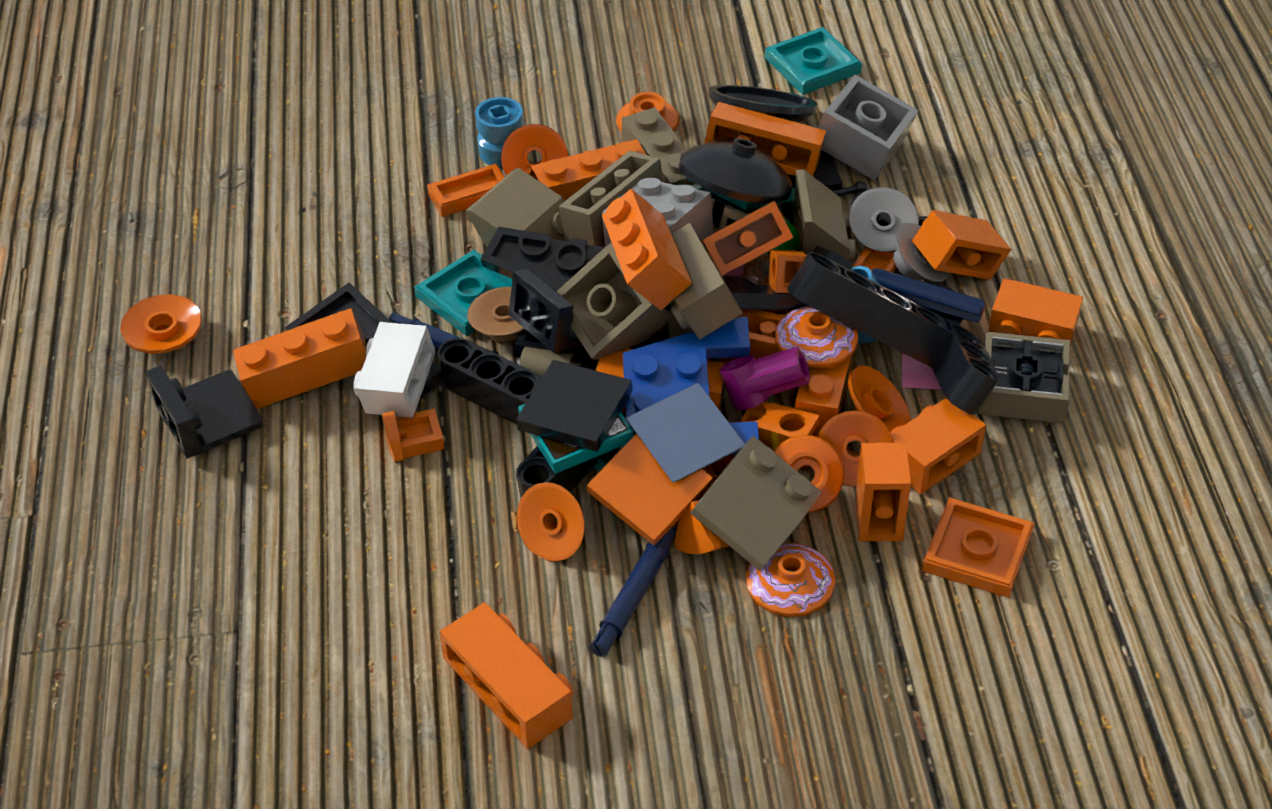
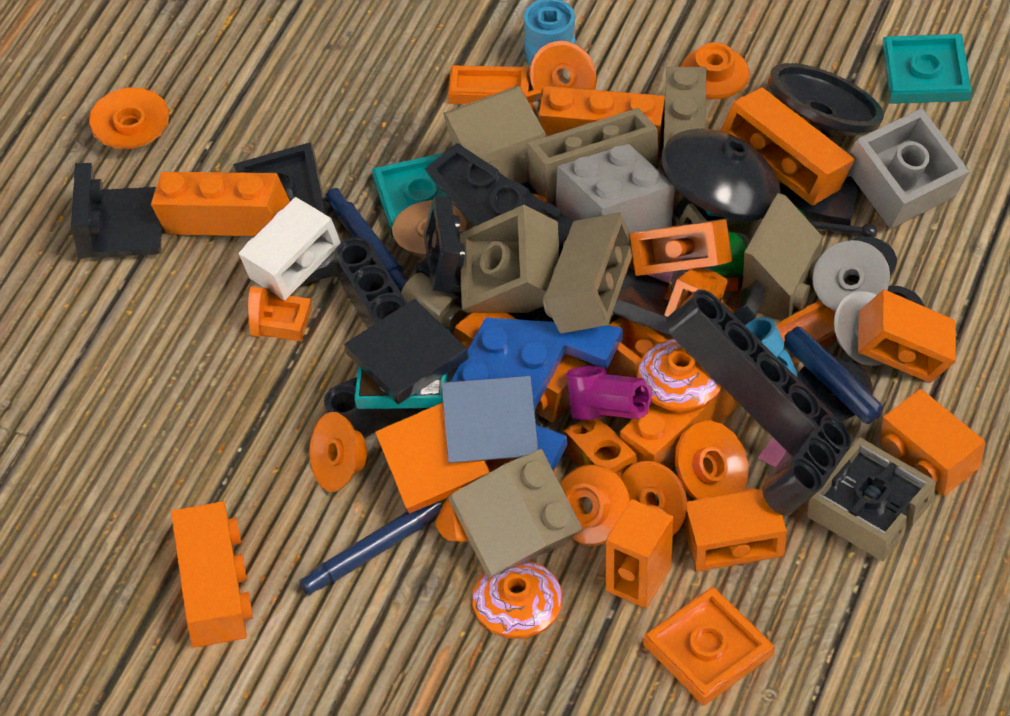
camera: 30 degrees right, 5 degrees up
(645, 249) = (552, 224): orange brick -> none

